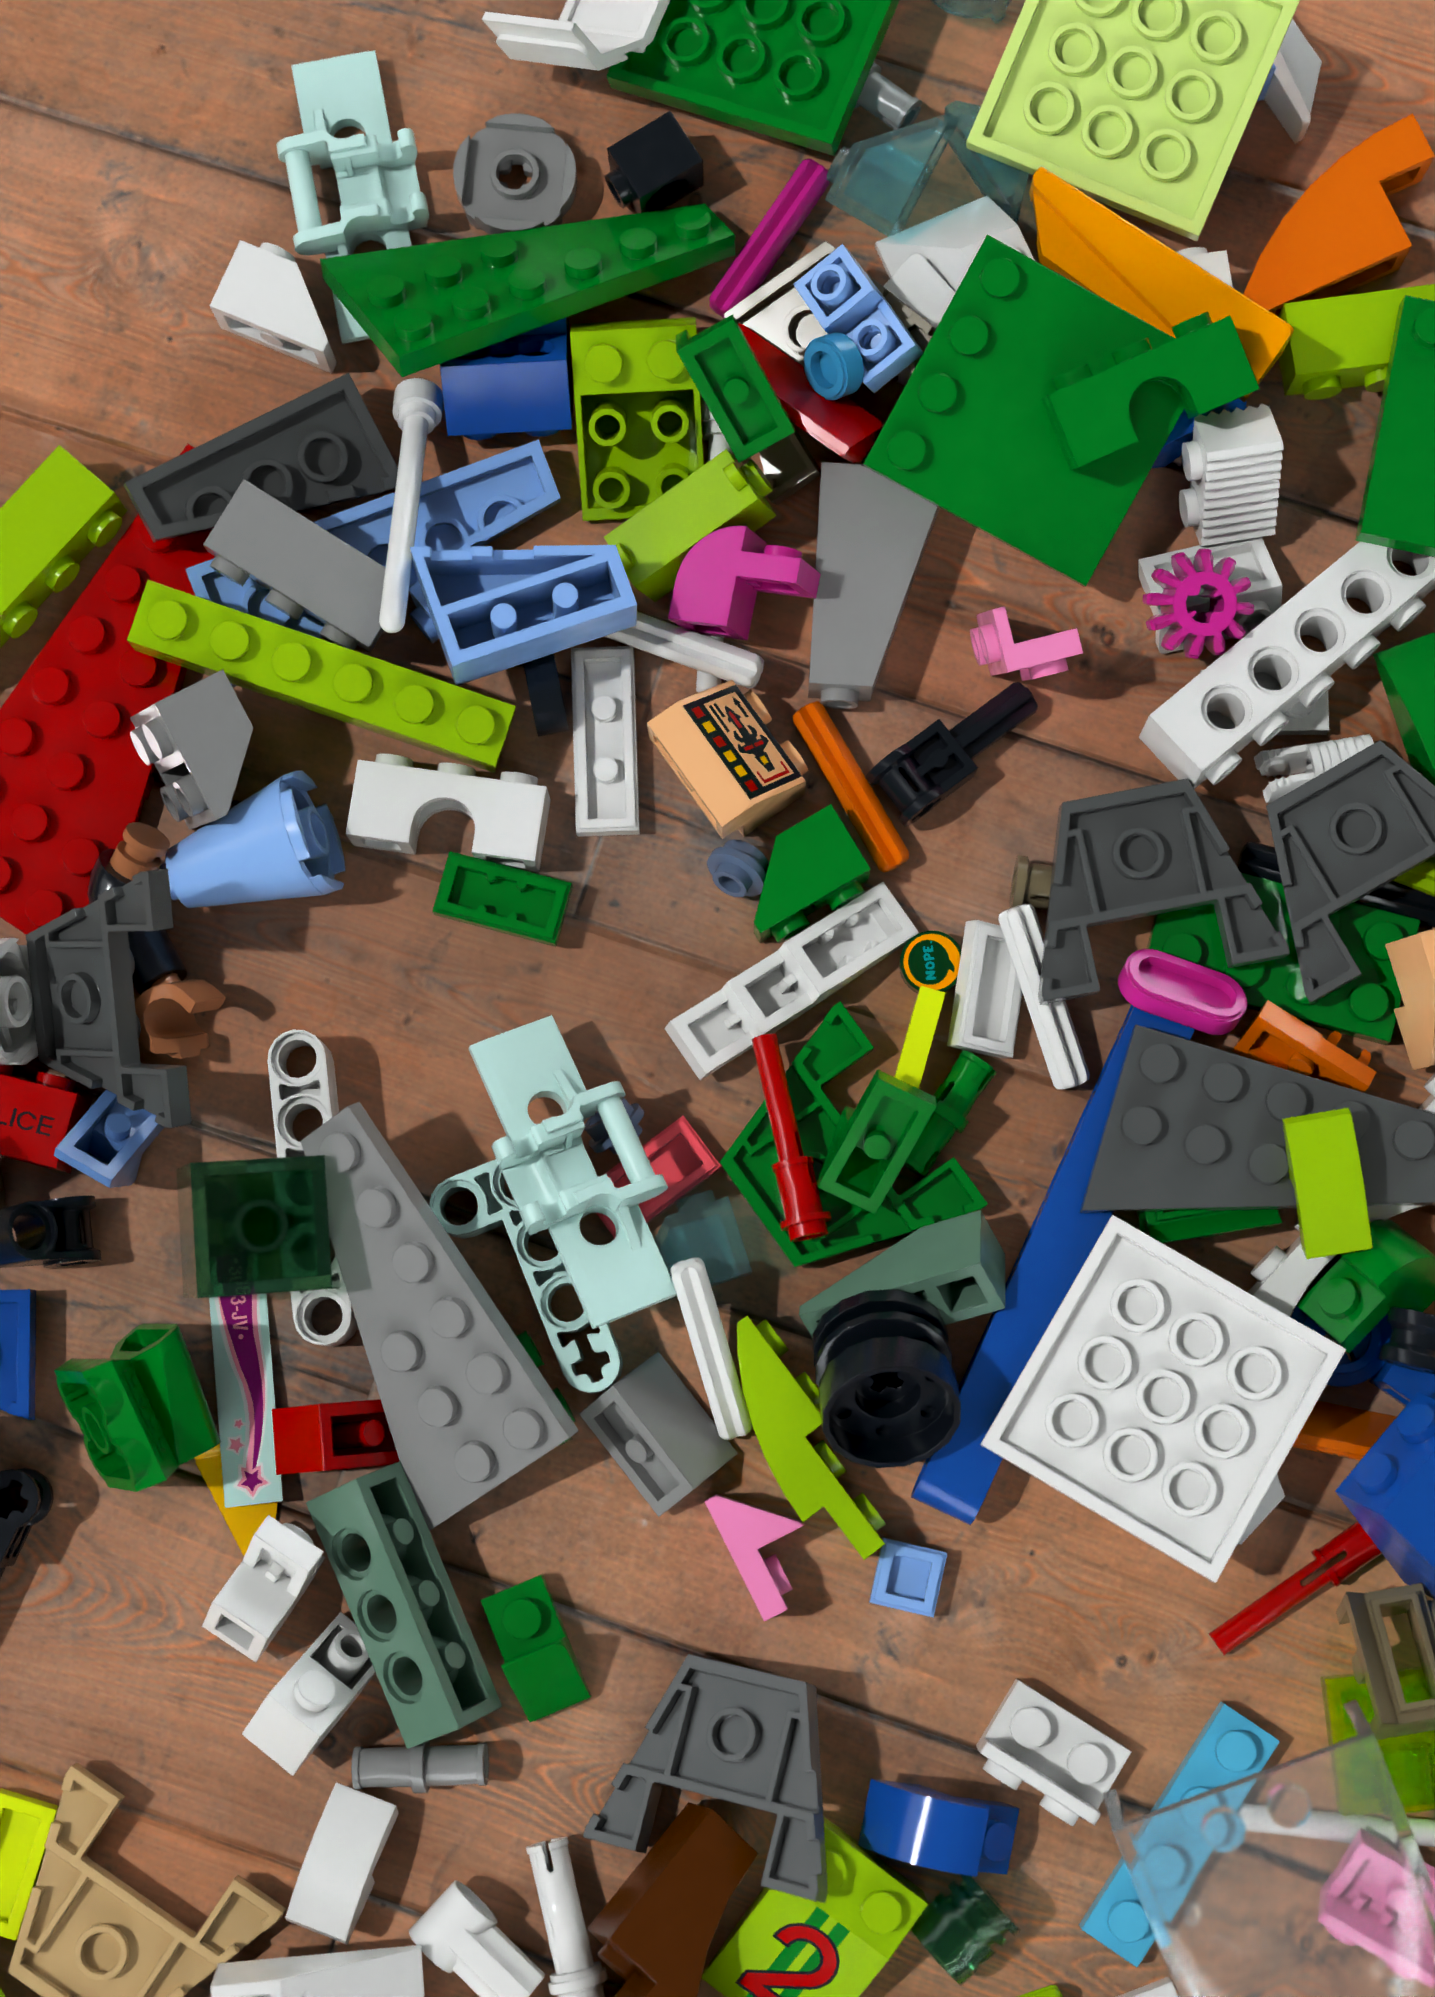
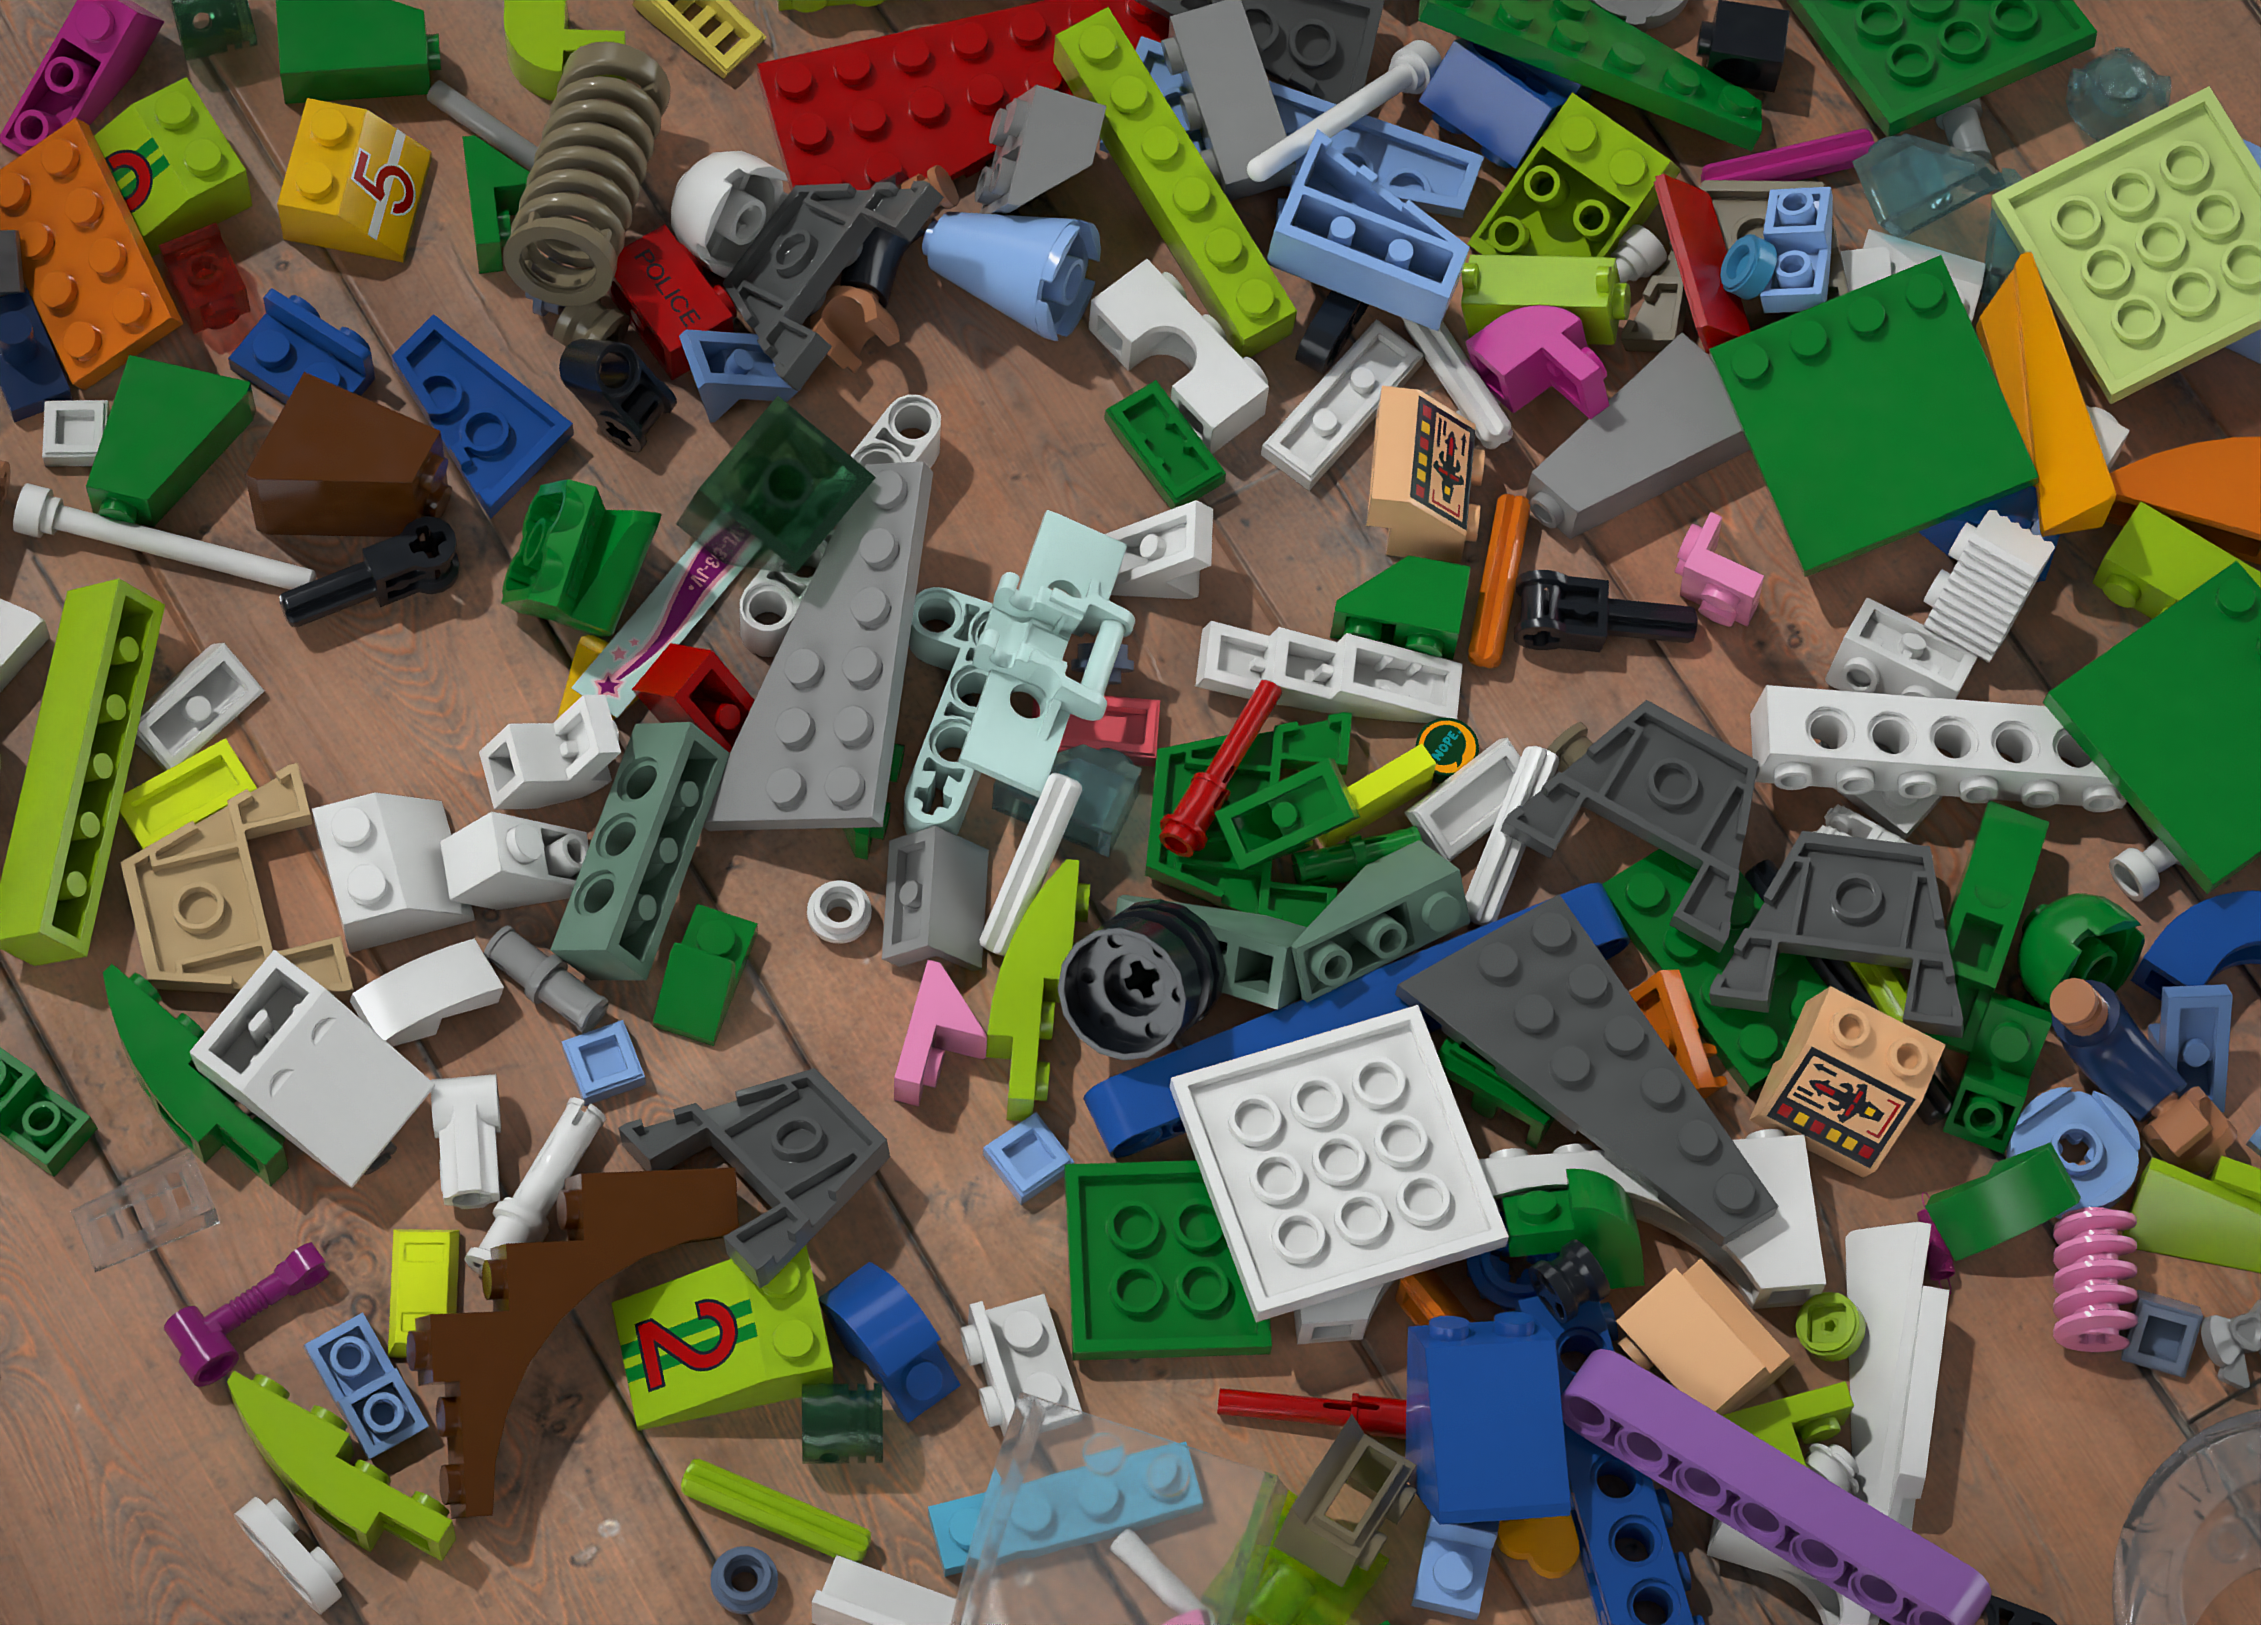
camera: 30 degrees right, 15 degrees down
(215, 1788) = (387, 867): none -> white slope
(522, 1789) = (603, 1062): none -> light blue tile
(571, 1507) = (833, 895): none -> white plate
(582, 992) = (1165, 553): none -> white slope
(734, 387) = (1657, 215): green panel -> none
(738, 868) = (1358, 561): sand blue plate -> none
(1013, 1156) = (1379, 918): none -> sand green slope
(1075, 1589) = (1152, 1266): none -> green plate
(1182, 991) = (1618, 908): dark pink tile -> none
(1187, 582) = (1875, 622): dark pink gear -> none
(1201, 365) = (1916, 432): green arch -> none
(1327, 1183) = (1600, 1107): lime slope -> none

